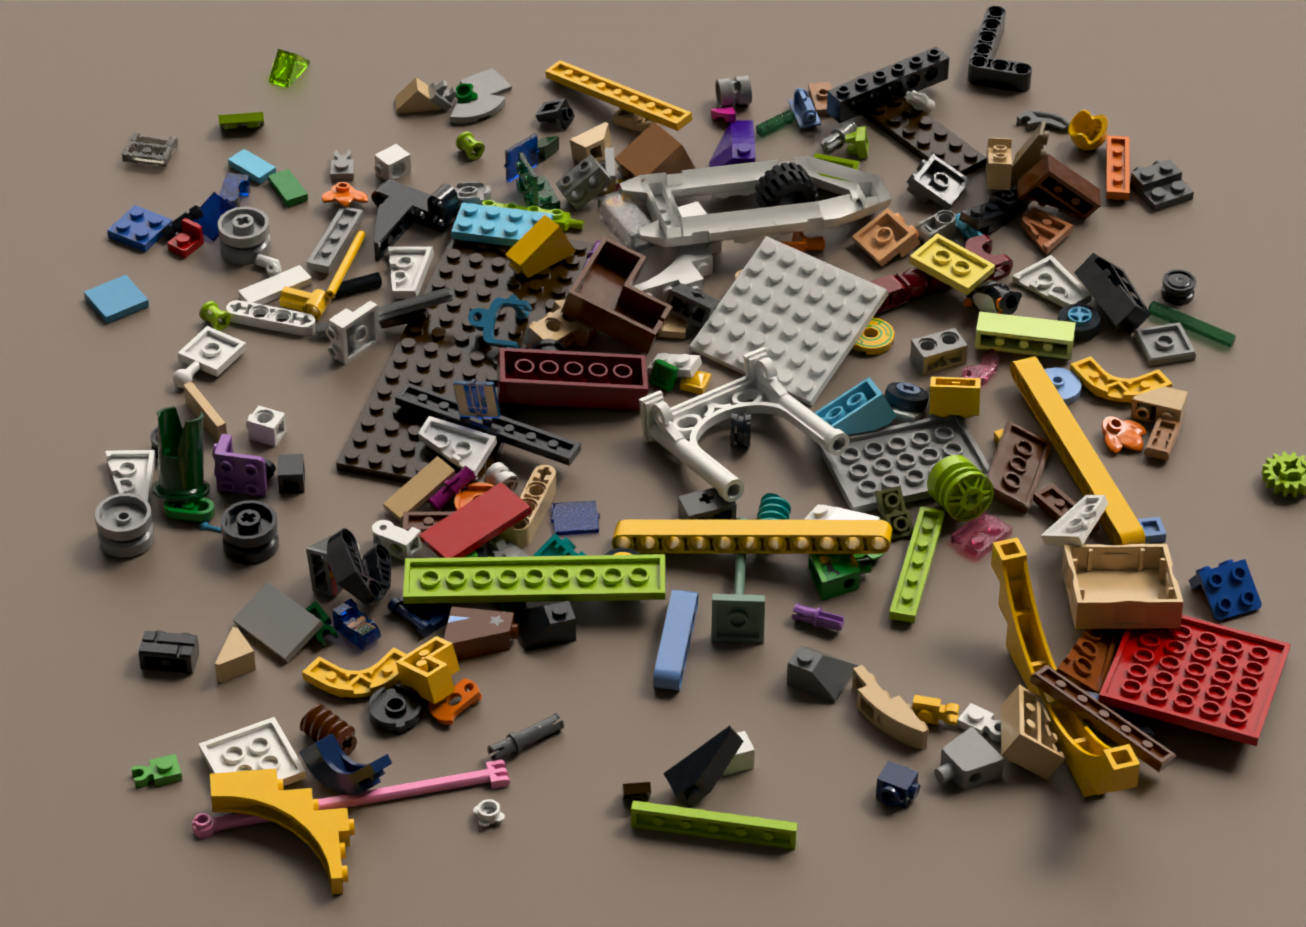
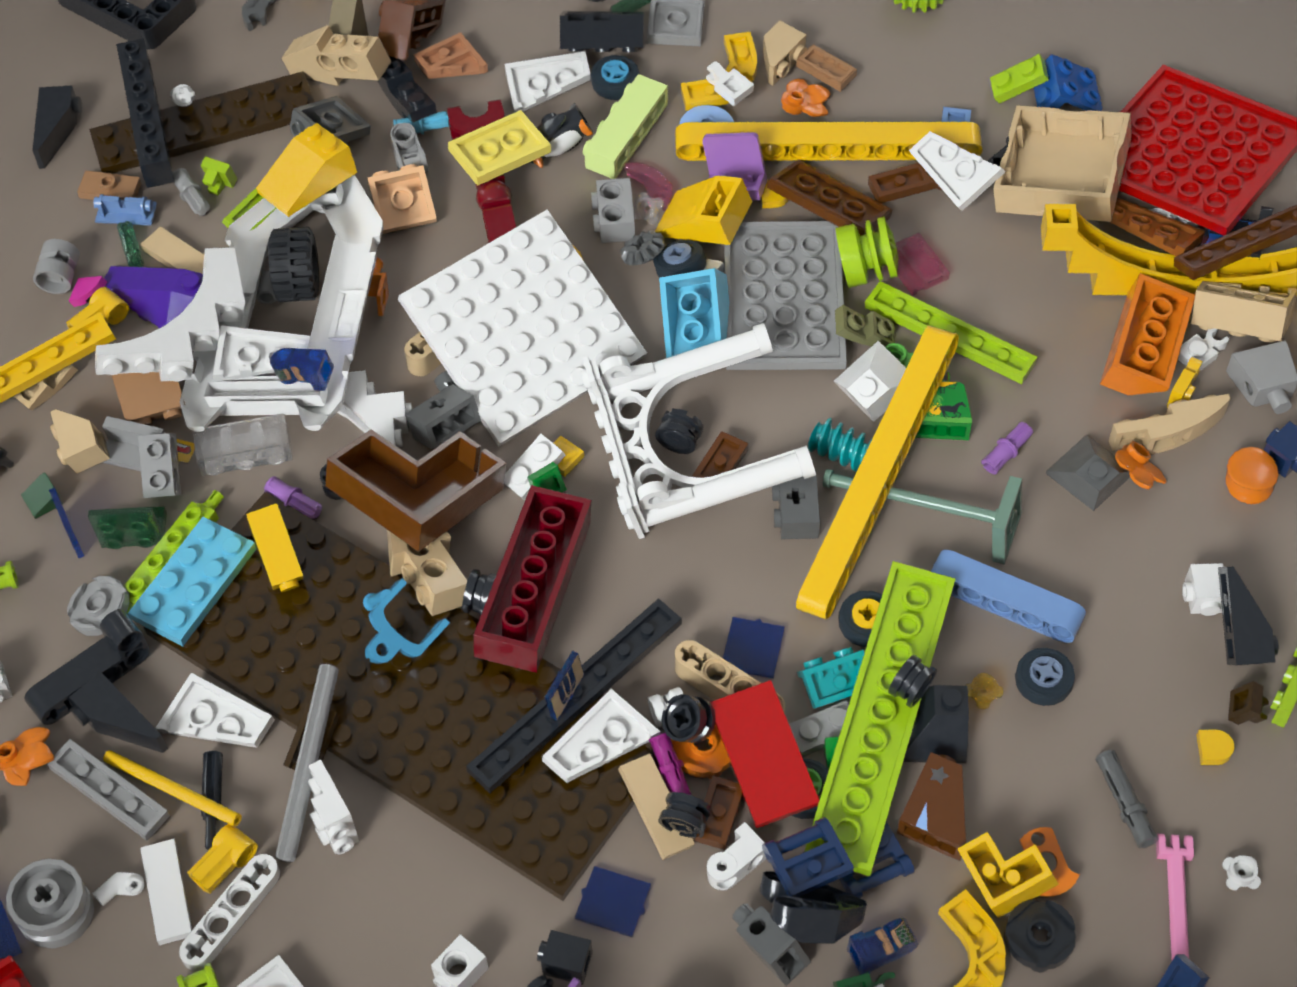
camera: 70 degrees left, 15 degrees up
(344, 492) = (613, 901): none -> clear blue piece
(390, 559) = (813, 867): none -> dark blue plate
(410, 494) = (685, 814): none -> black wheel
(485, 476) = (688, 718): none -> black wheel
(555, 574) = (912, 681): none -> black wheel
(588, 644) = (986, 682): none -> clear yellow plate
(592, 784) = (1214, 747): none -> yellow tile
(613, 674) = (1042, 665): none -> black wheel
(682, 211) = (303, 366): none -> clear blue leg
(690, 190) = (249, 351): none -> white wing
(695, 155) = (195, 329): none -> white arch
(709, 126) = (103, 301): none -> yellow piece
(736, 462) = (722, 456): none -> reddish brown plate
(780, 144) = (172, 251): none -> tan tile
(831, 694) = (1141, 471): none -> orange plate
(861, 768) = (1251, 475): none -> orange piece
(863, 52) = (54, 121): none -> black slope
(876, 175) = (306, 170): none -> yellow slope
(909, 374) = (642, 248): none -> dark grey gear
(951, 367) = (640, 208): none -> clear plate
(964, 669) = (1148, 337): none -> orange slope
(1012, 405) = (738, 157): none -> medium lavender bracket
(1098, 379) = (730, 85): none -> white plate
(1213, 551) = (1019, 78): none -> lime plate

